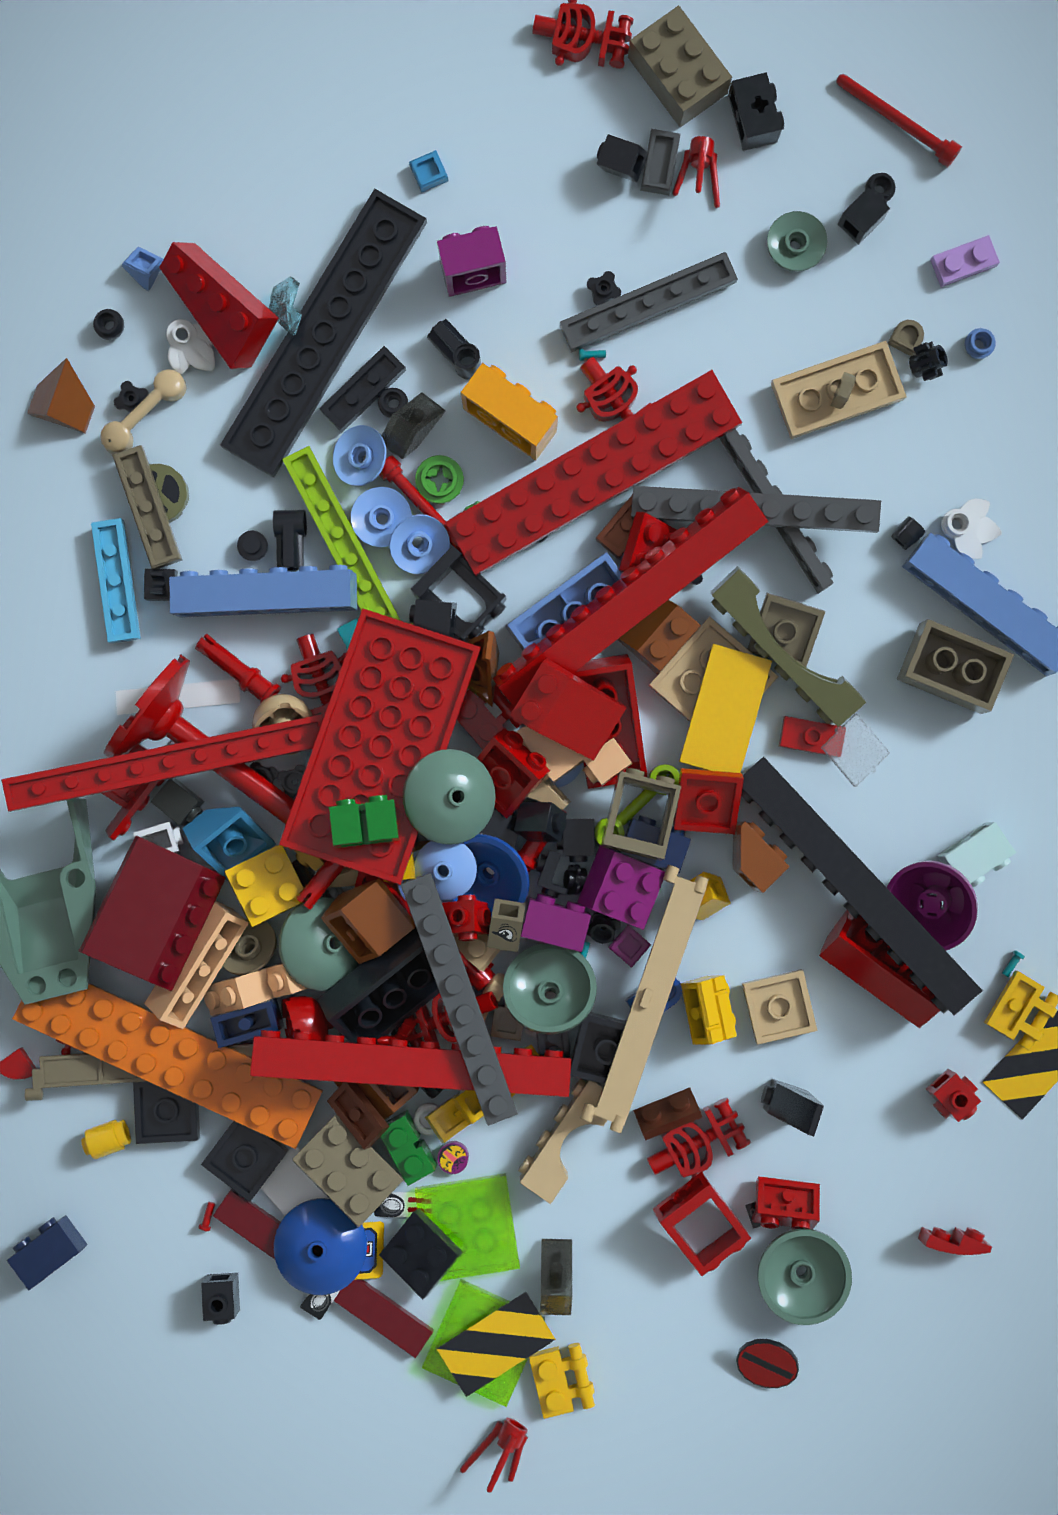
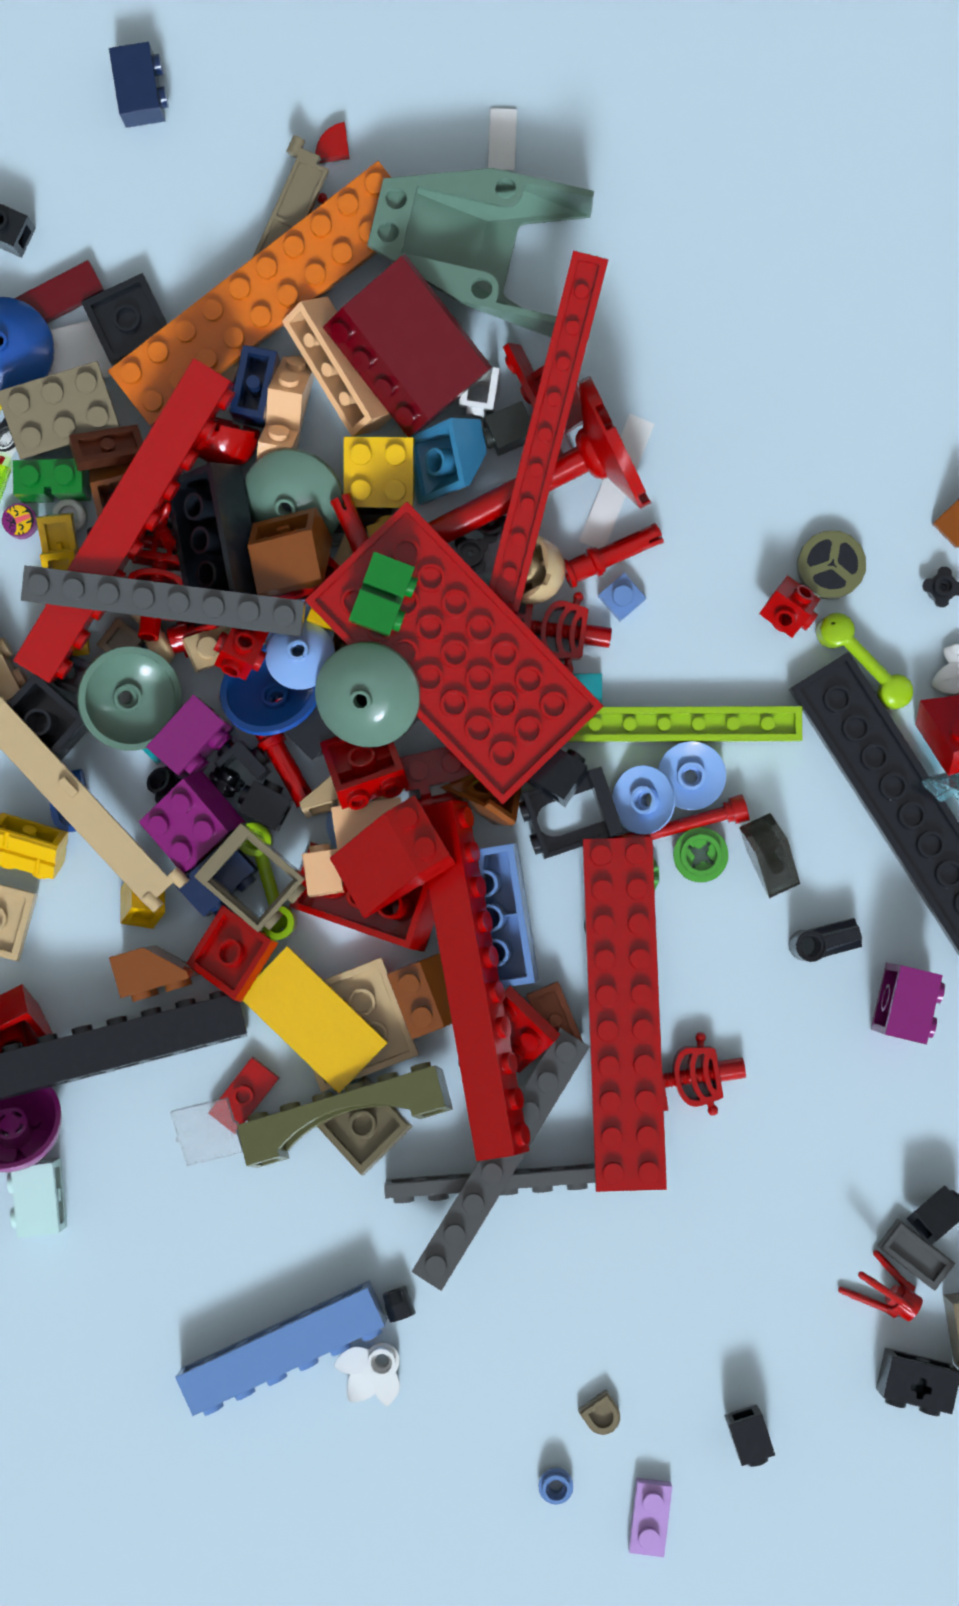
camera: 125 degrees right, 0 degrees up
(106, 1139) = (216, 194): yellow brick -> none
(115, 580) = (764, 478): medium azure plate -> none
(147, 507) = (822, 546): dark tan tile -> none
(157, 584) = (737, 521): black tile -> none
(163, 1115) = (208, 260): black plate -> none
(167, 386) = (910, 553): tan piece -> none
(207, 1217) = (82, 248): red piece -> none
(208, 506) = (791, 607): none -> red brick
(233, 396) = (894, 690): none -> lime piece
(252, 545) = (729, 632): black plate -> none
(261, 941) = (314, 413): dark tan dish -> none
(263, 592) = (674, 617): medium blue brick -> none
(267, 644) = (622, 597): none -> medium blue plate
(290, 530) = (725, 677): black piece -> none
(349, 455) = (771, 776): light blue dish -> none
(363, 389) = (833, 825): black plate -> none
(388, 395) = (813, 844): black plate -> none
(506, 925) = (212, 686): dark tan brick -> none
(509, 410) = (732, 961): light orange brick -> none
(540, 822) = (298, 775): black brick -> none
(589, 354) = (754, 1068): teal piece -> none
(606, 280) = (804, 1118): black plate -> none
(629, 945) = (132, 801): magenta tile -> none
(648, 302) = (774, 1164): dark grey plate -> none
(801, 228) = (763, 1368): sand green dish -> none
(808, 393) = (582, 1312): tan plate -> none
(843, 390) = (577, 1315): dark tan tile -> none
(883, 180) = (777, 1478): black plate -> none
(928, 361) = (563, 1420): black gear -> none
(945, 150) = (776, 1559): red piece -> none
(955, 666) = (236, 1277): dark tan brick -> none

